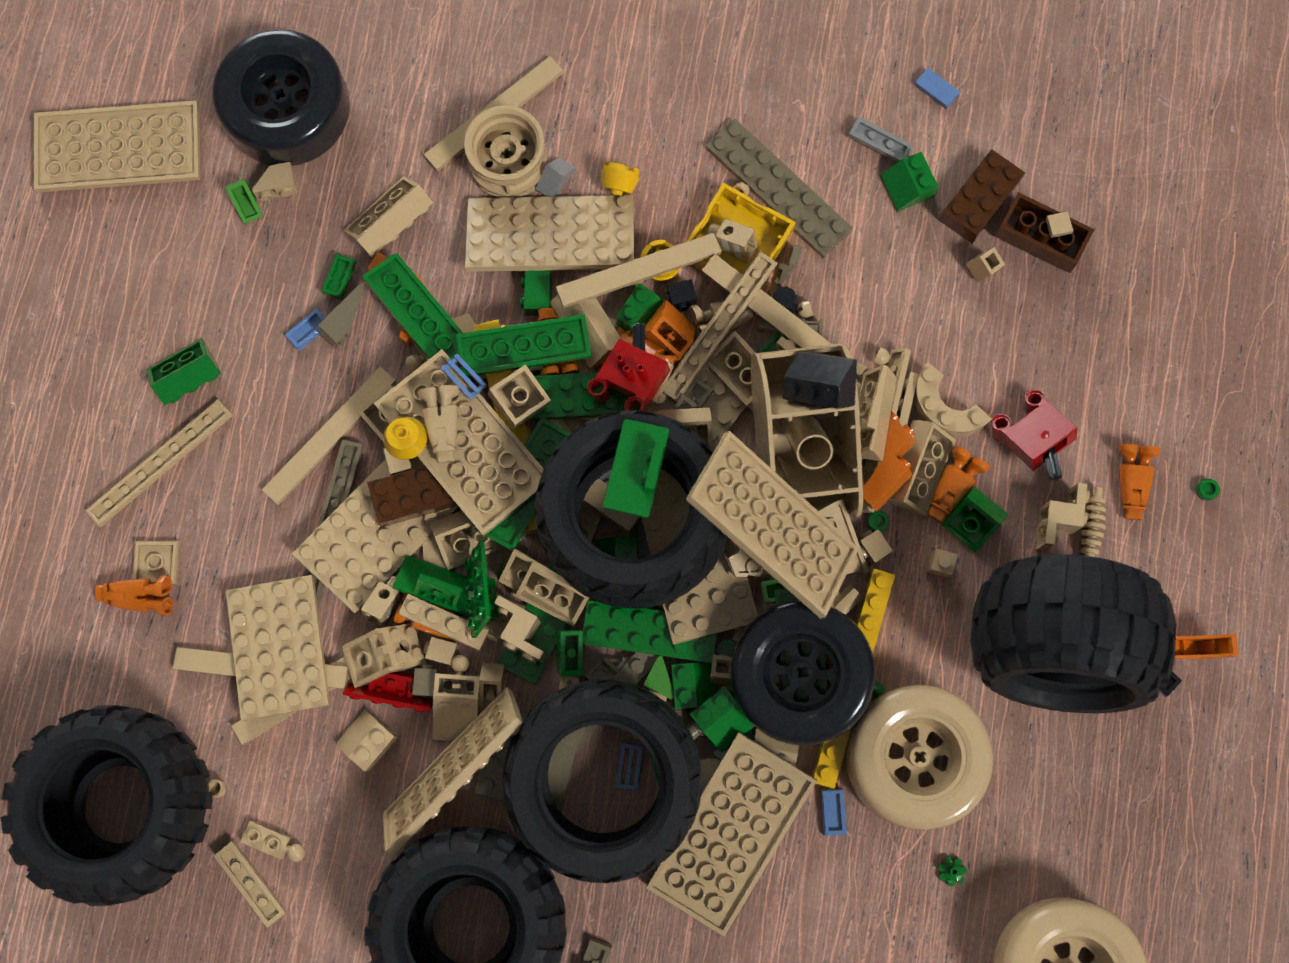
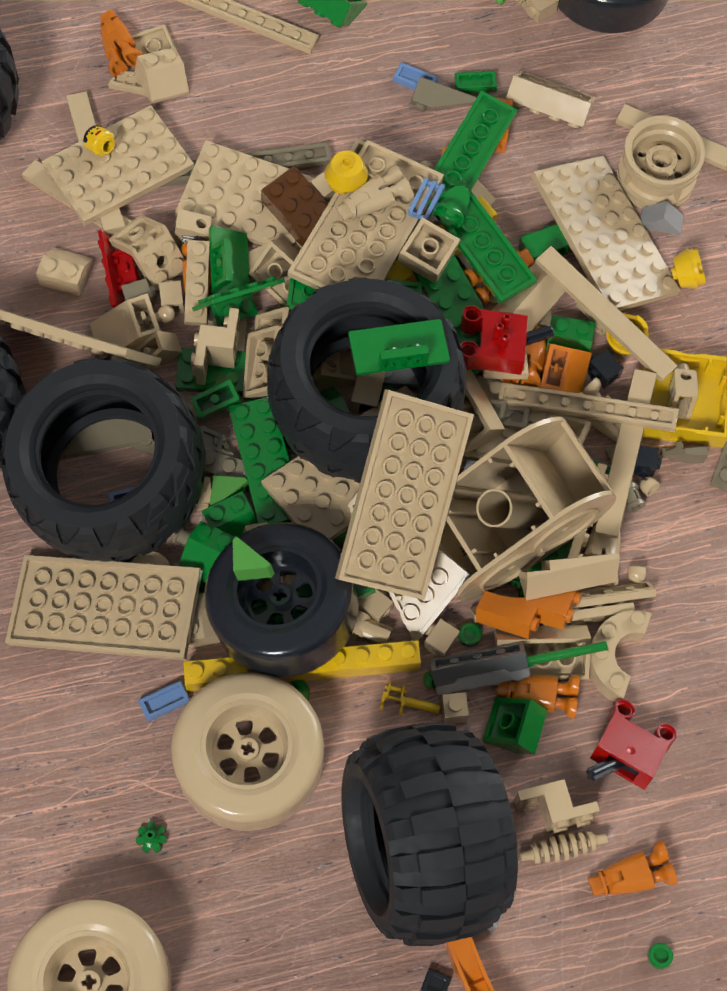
camera: 60 degrees right, 10 degrees down
(185, 600) = (127, 82): none -> tan tile
(196, 566) = (162, 75): none -> tan slope
(250, 656) = (99, 140): none -> yellow head
(326, 438) = (314, 128): tan tile -> none
(482, 354) = (453, 206): none -> green piece
(771, 689) = (248, 563): none -> bright green slope
(821, 380) = (562, 478): black slope -> none
(916, 600) = (407, 701): none -> yellow piece
(922, 514) = (493, 666): none -> piece

